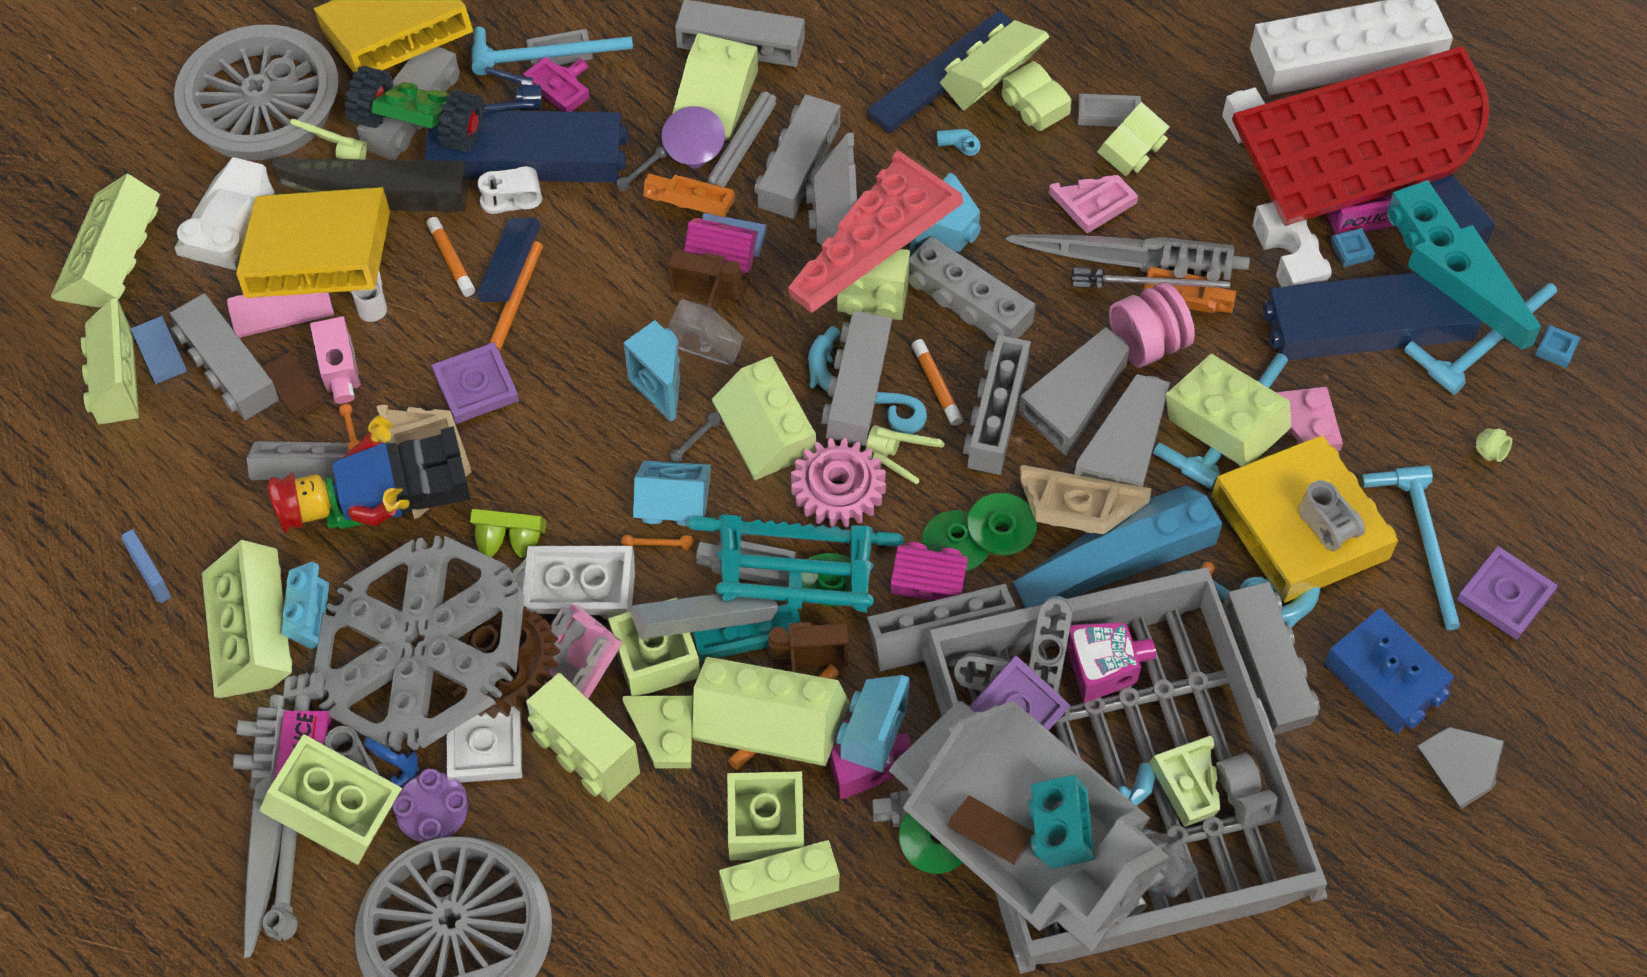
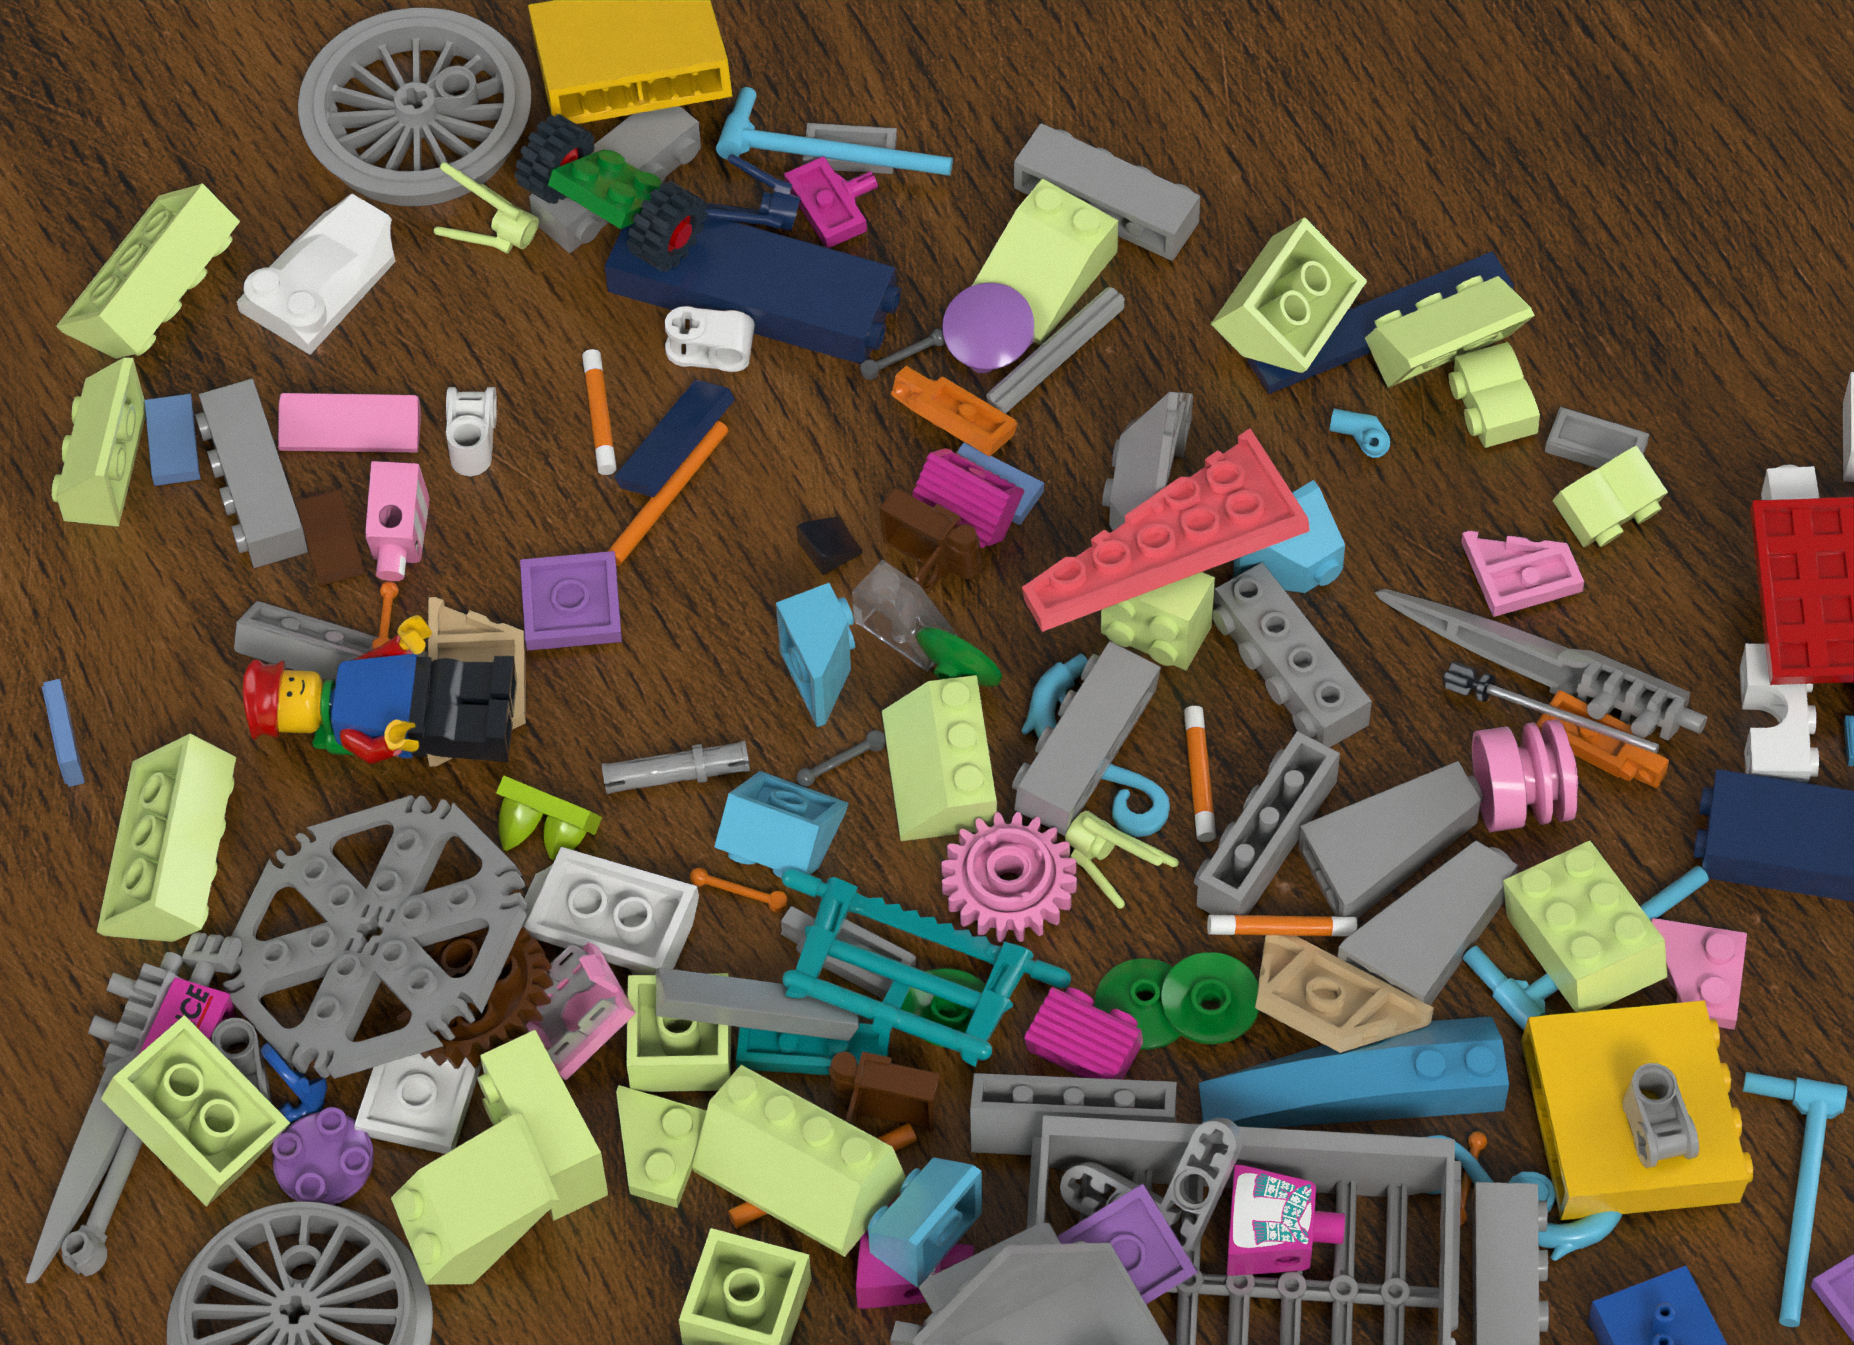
camera: 20 degrees right, 0 degrees up
(304, 605) = (247, 843): medium azure bracket -> none
(314, 243) = (419, 346): yellow brick -> none
(406, 183) = (540, 283): clear smoke slope -> none
(555, 804) = (474, 1203): none -> yellowish green slope
(589, 471) = (676, 767): none -> light grey pin
(635, 301) = (827, 543): none -> black slope
(753, 347) = (957, 657): none -> green dish
(799, 151) = (1132, 381): light grey brick -> none
(884, 69) = (1290, 299): none -> yellowish green slope
(1030, 463) = (1281, 925): none -> orange bar

